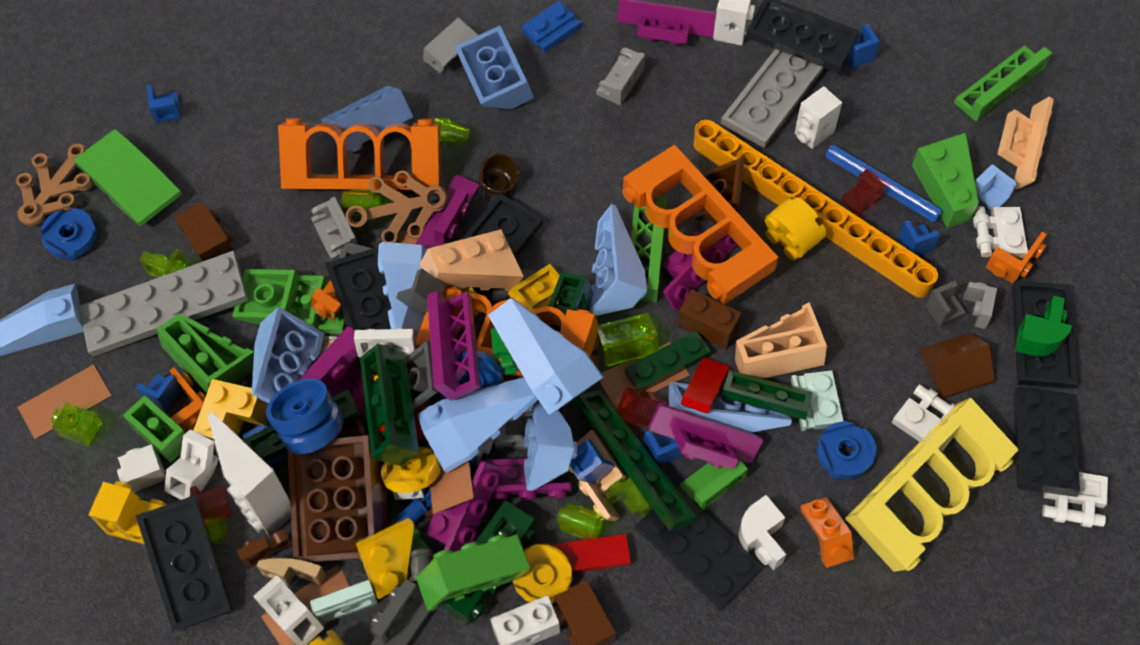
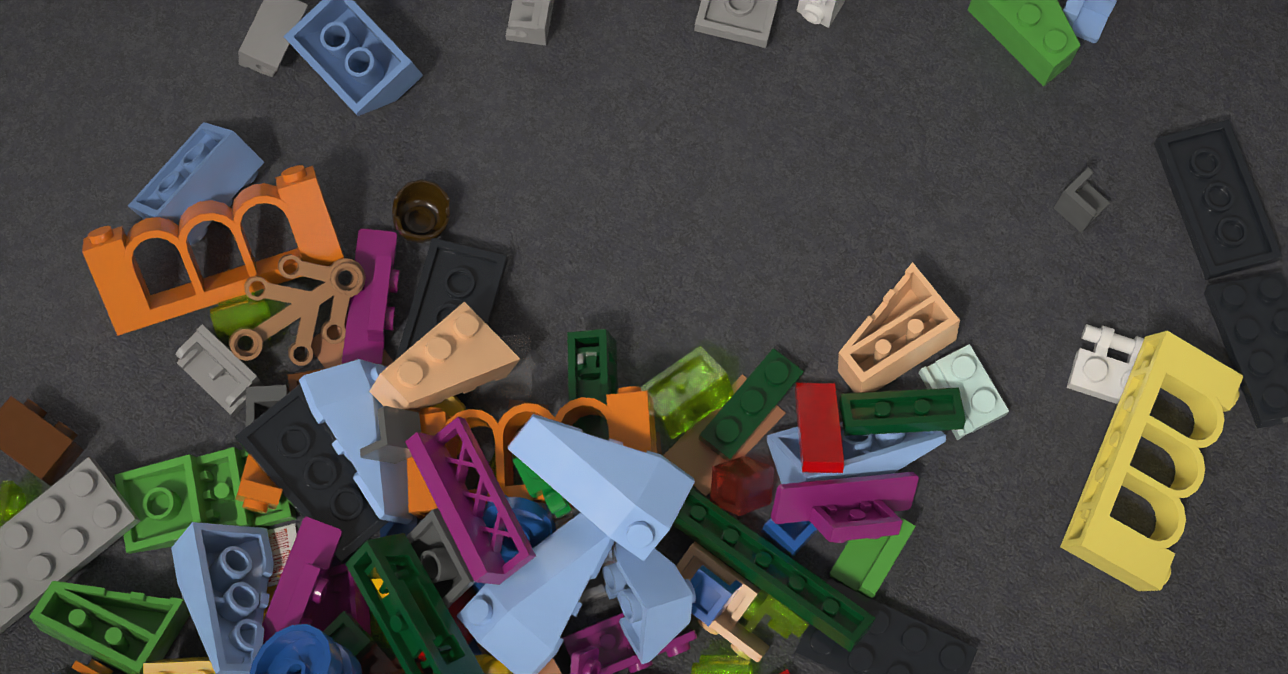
camera: 25 degrees left, 10 degrees up
(397, 339) = (354, 531): white plate -> none
(452, 131) = (326, 163): clear neon green cone -> none
(536, 289) = (542, 370): yellow wing -> none
(617, 268) = (640, 300): light blue wedge -> none
(655, 246) = (678, 250): bright green fence -> none
(680, 267) = (736, 245): magenta bracket -> none
(709, 318) = (786, 328): reddish brown brick -> none
(725, 279) = (654, 138): orange fence -> none
(727, 181) = (734, 136): reddish brown slope -> none
(756, 529) = (951, 599): white brick -> none
(794, 227) = (852, 157): yellow brick -> none
(833, 533) = (1045, 567): orange bracket -> none
(840, 233) = (879, 111): light orange beam -> none
(853, 437) = (1024, 472): blue plate -> none
(865, 193) = (921, 73): clear red panel -> none
(892, 187) = (941, 49): blue axle -> none
(918, 238) = (1014, 118): blue panel -> none
(958, 364) = (1124, 277): reddish brown slope -> none
(984, 302) = (1131, 182): light grey bracket -> none
(1007, 231) = (1124, 68): white plate -> none
(1011, 268) = (1144, 120): orange bracket -> none
(1043, 335) = (1225, 204): green brick -> none

